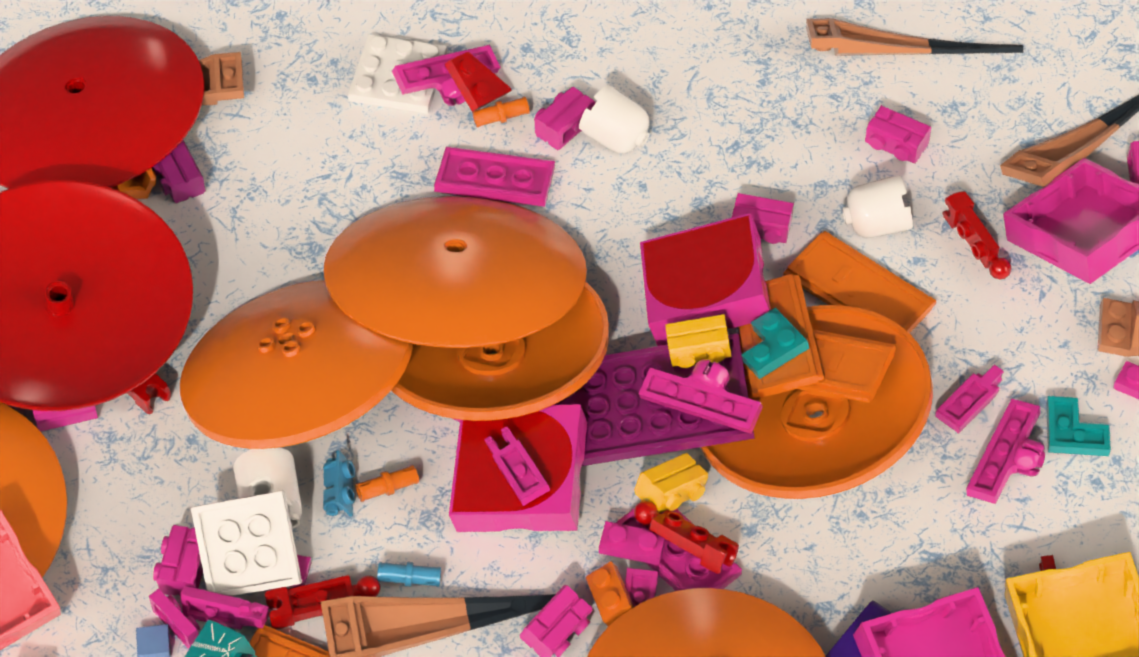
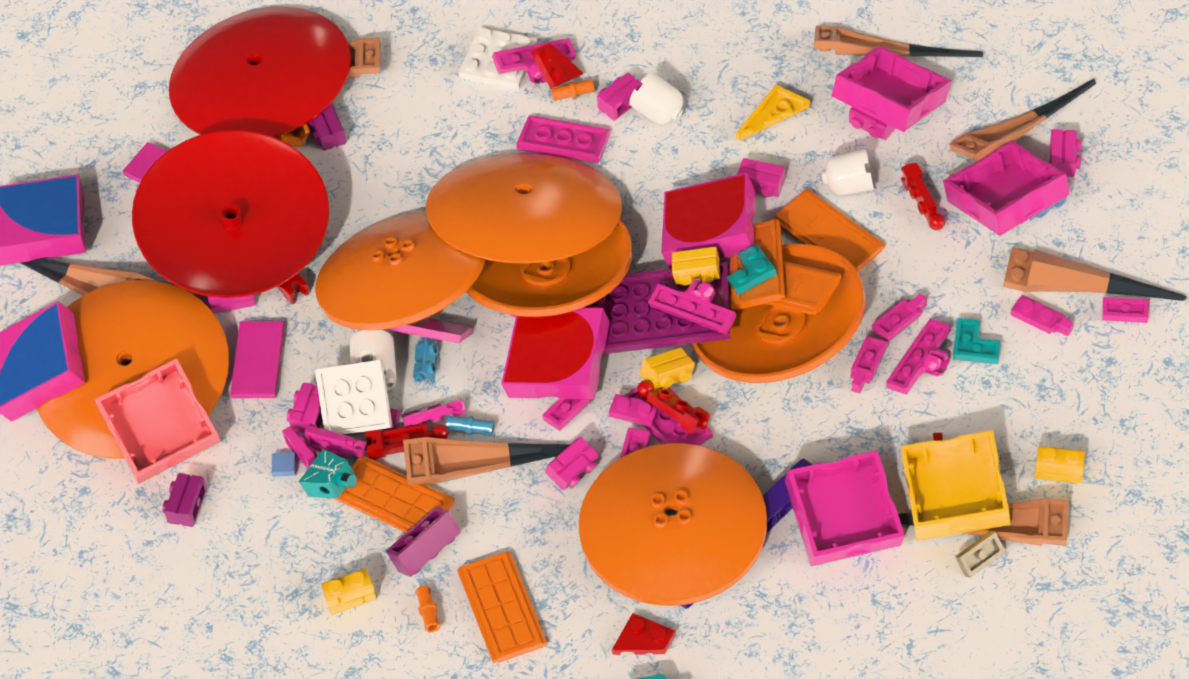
camera: 10 degrees right, 0 degrees up
(105, 494) = (257, 359): none -> dark pink tile
(355, 443) = (437, 330): none -> dark pink tile
(356, 558) = (434, 412): none -> dark pink hinge
(387, 483) = (460, 360): orange pin -> none
(518, 468) = (552, 352): dark pink hinge -> none
(536, 549) = (564, 411): none -> dark pink plate
(609, 592) = (612, 443): orange plate -> none
(767, 126) = (774, 108): none -> yellow wing
(918, 96) = (891, 88): none -> dark pink tile
(937, 461) = (867, 362): none -> dark pink hinge

